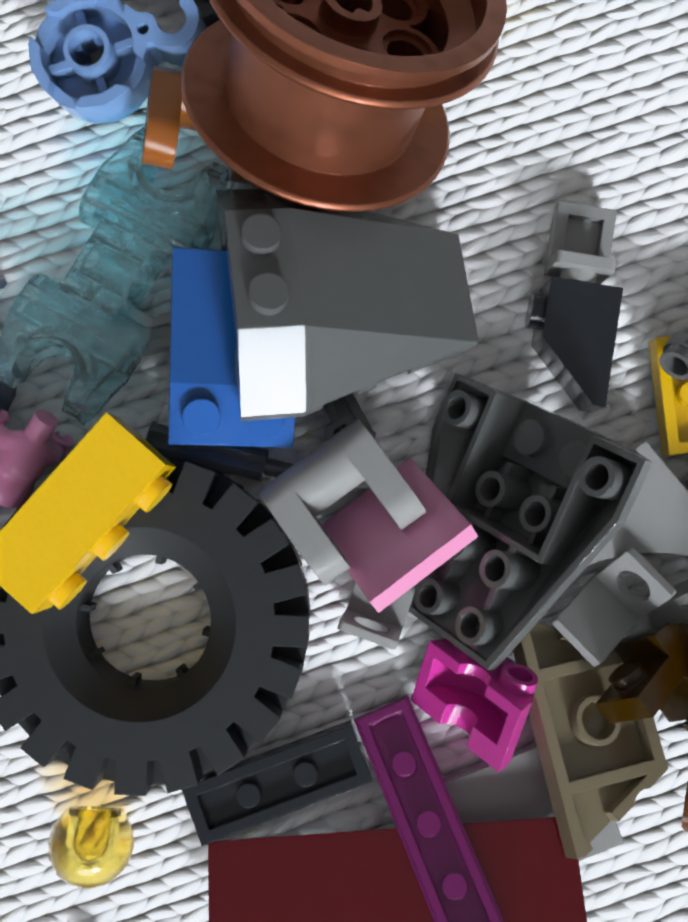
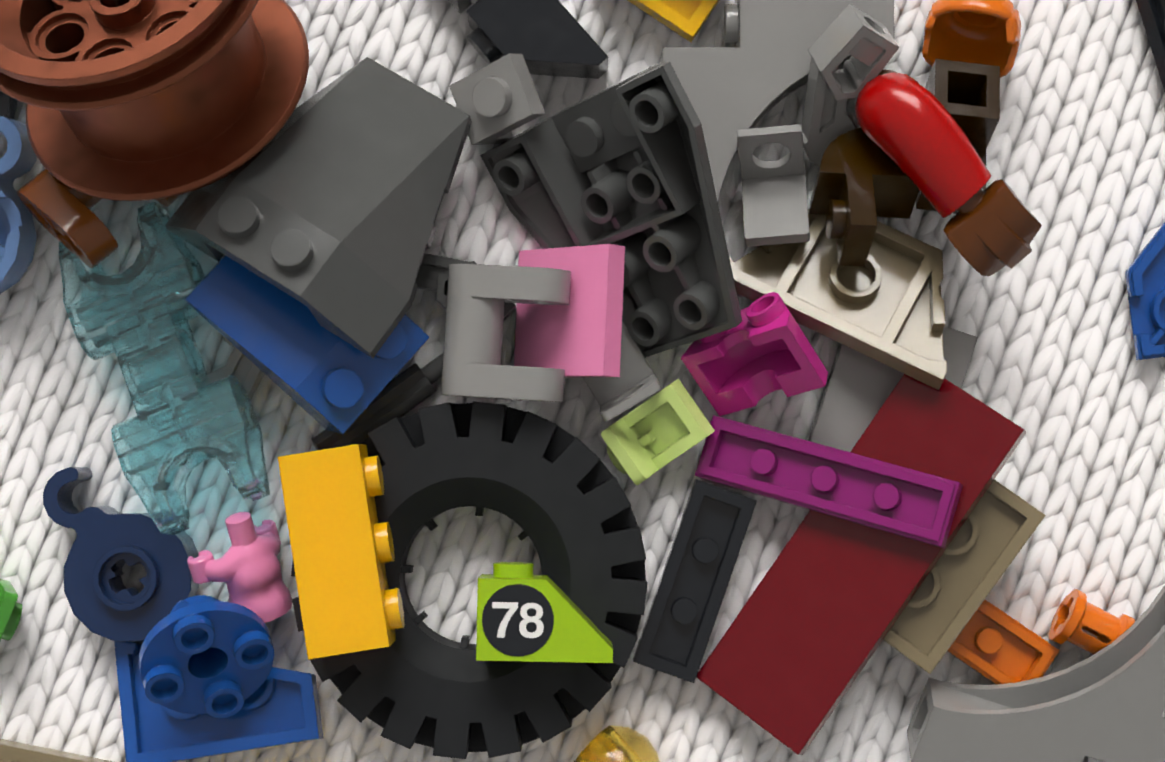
camera: 45 degrees left, 0 degrees up
(143, 705) = (533, 620): none -> slope
(360, 668) = (656, 432): none -> yellowish green bracket
(507, 353) = (498, 99): none -> light grey bracket

